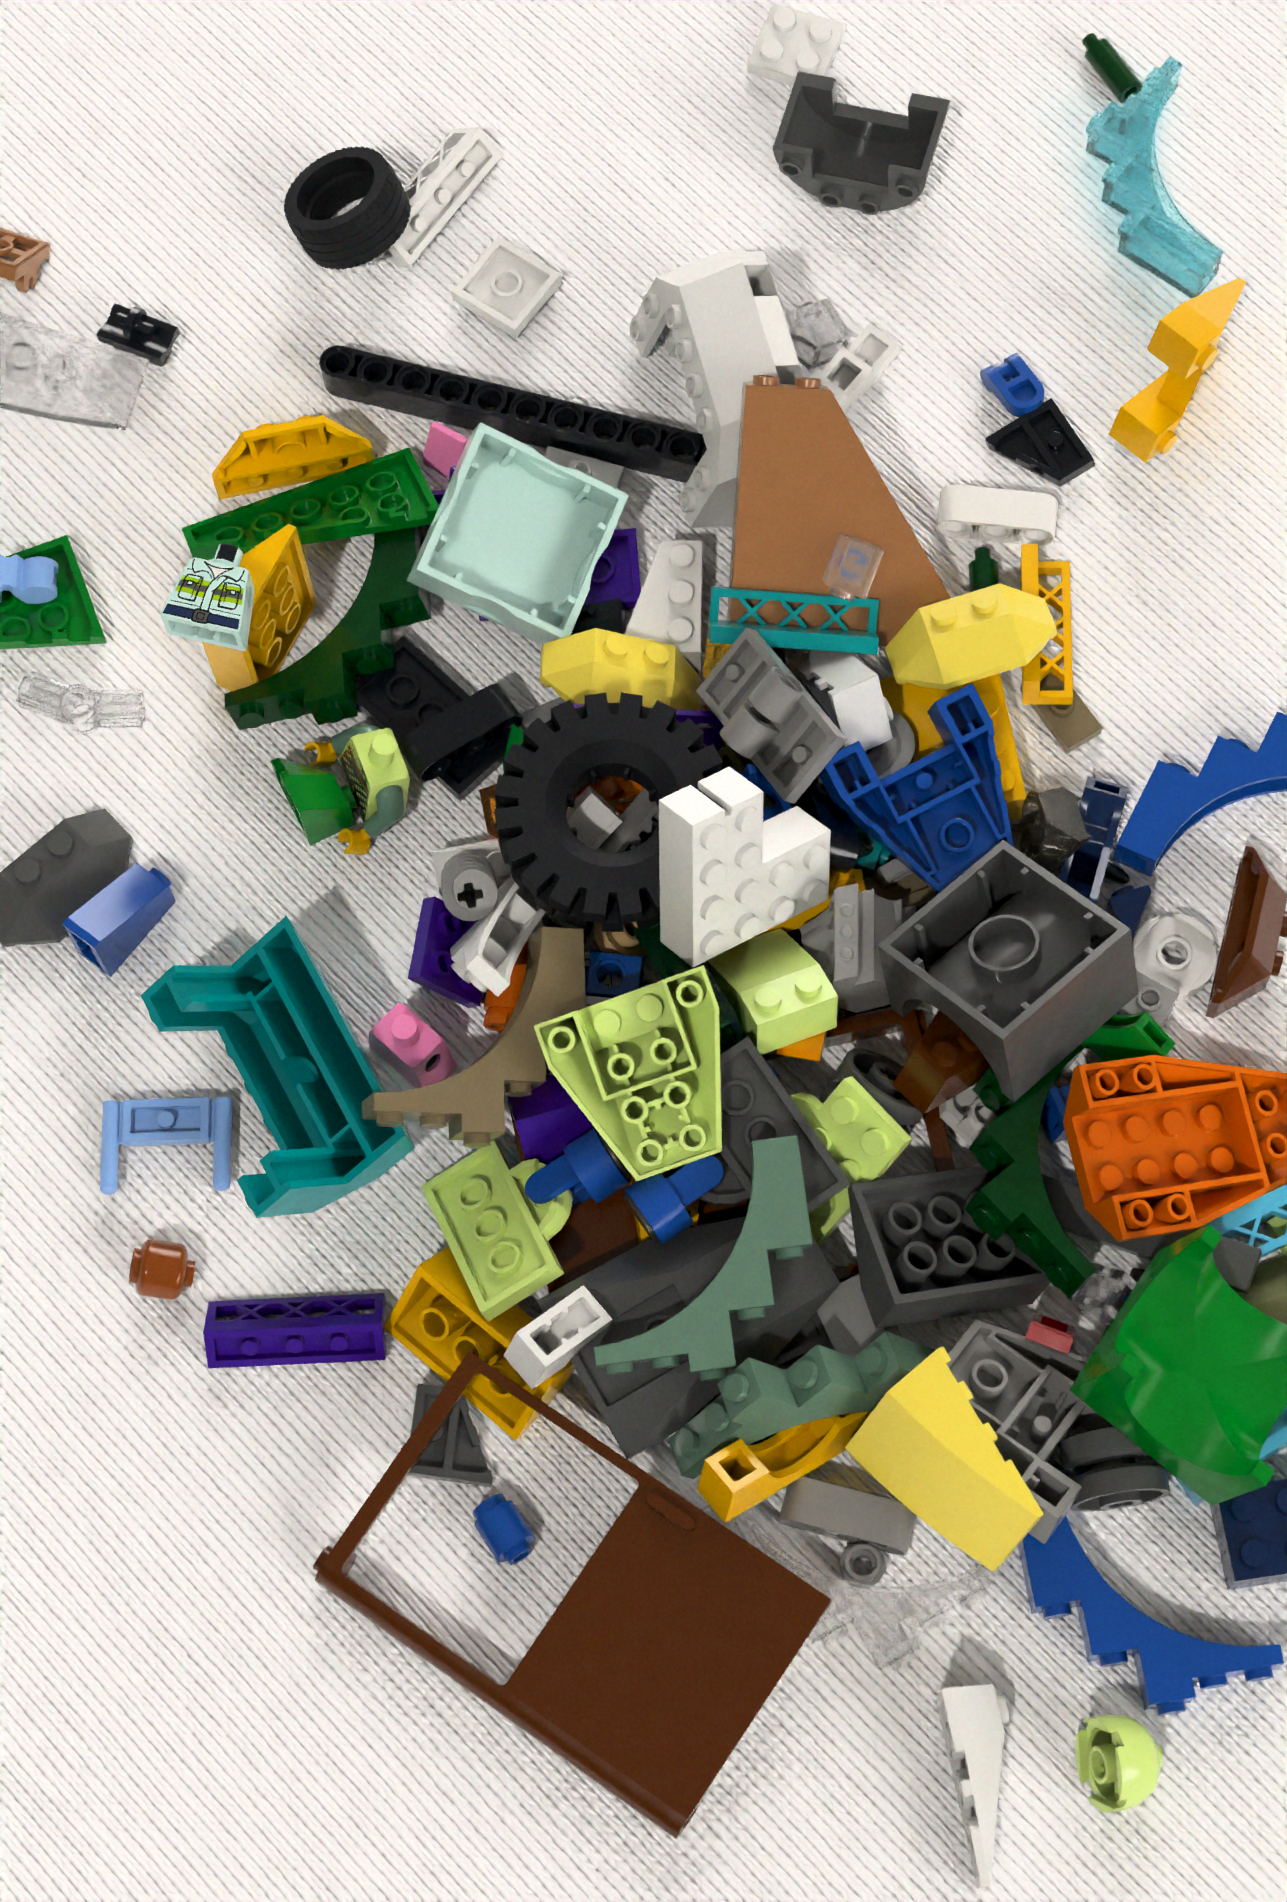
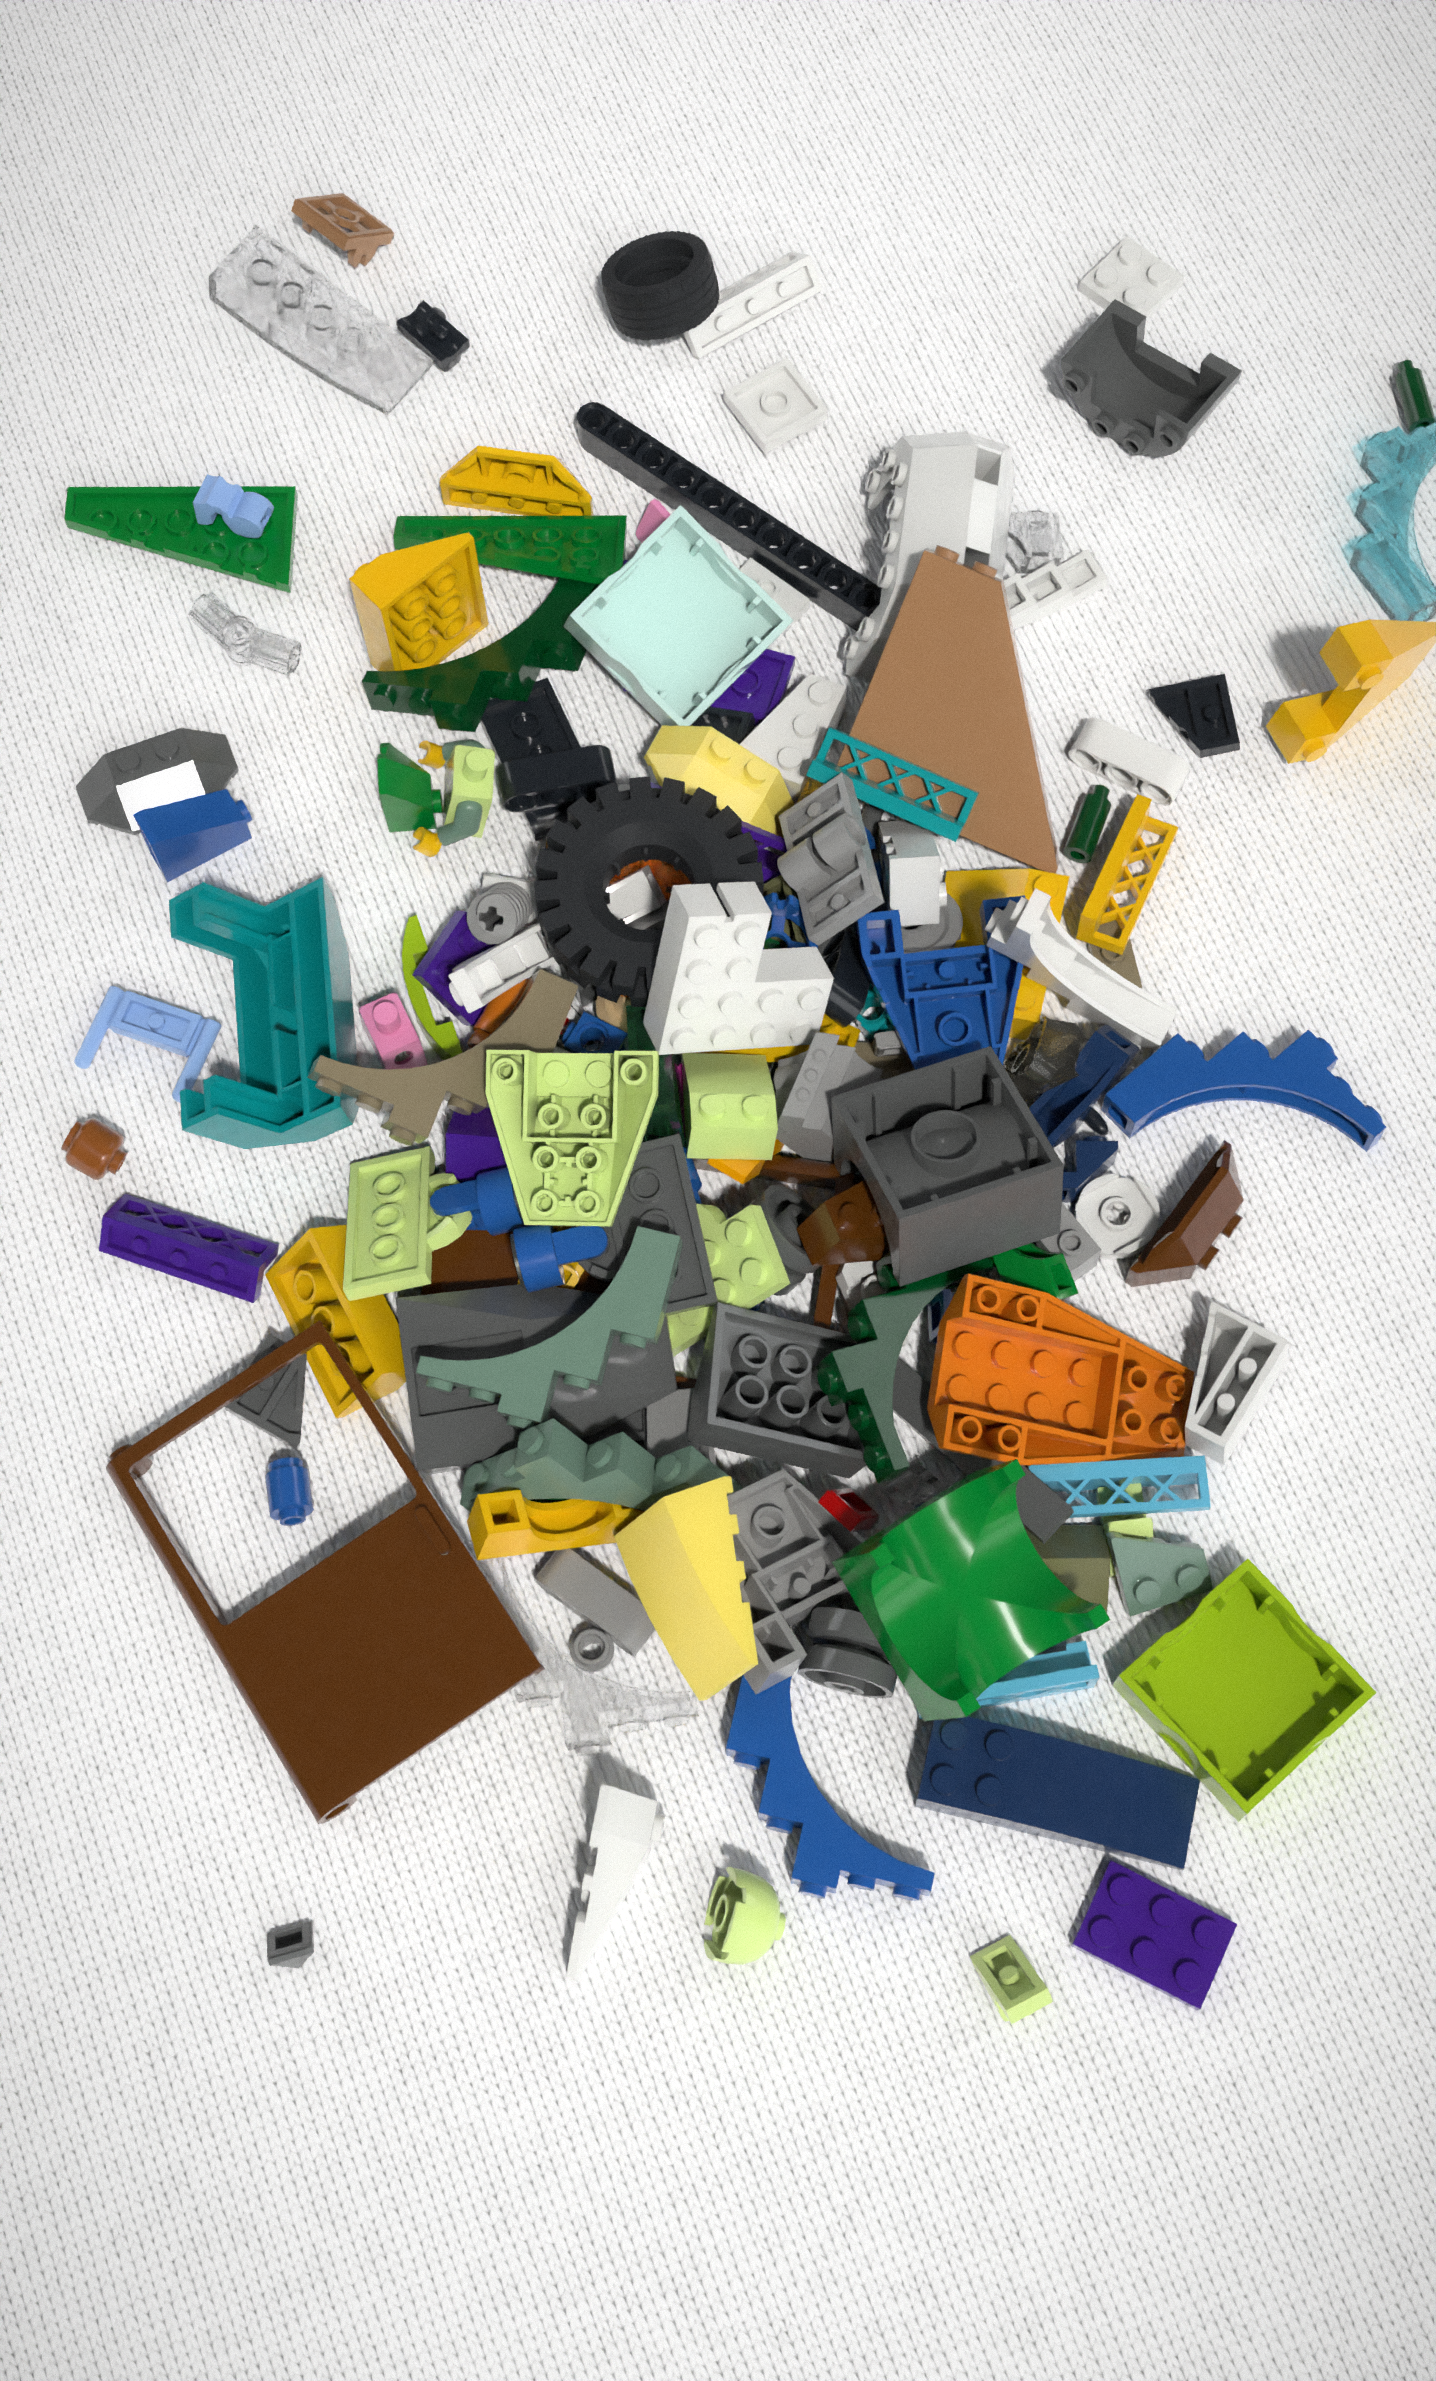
camera: 20 degrees right, 0 degrees up
(212, 601) = (368, 574): light aqua torso -> none
(459, 1030) = (440, 1037): none -> lime slope
(556, 1336) = (396, 1334): white arch -> none
(852, 567) = (962, 753): clear brick -> none
(970, 637) = (1050, 853): light yellow wedge -> none
(1021, 393) = (1196, 660): blue plate -> none
(1058, 746) = (1037, 940): none -> white arch

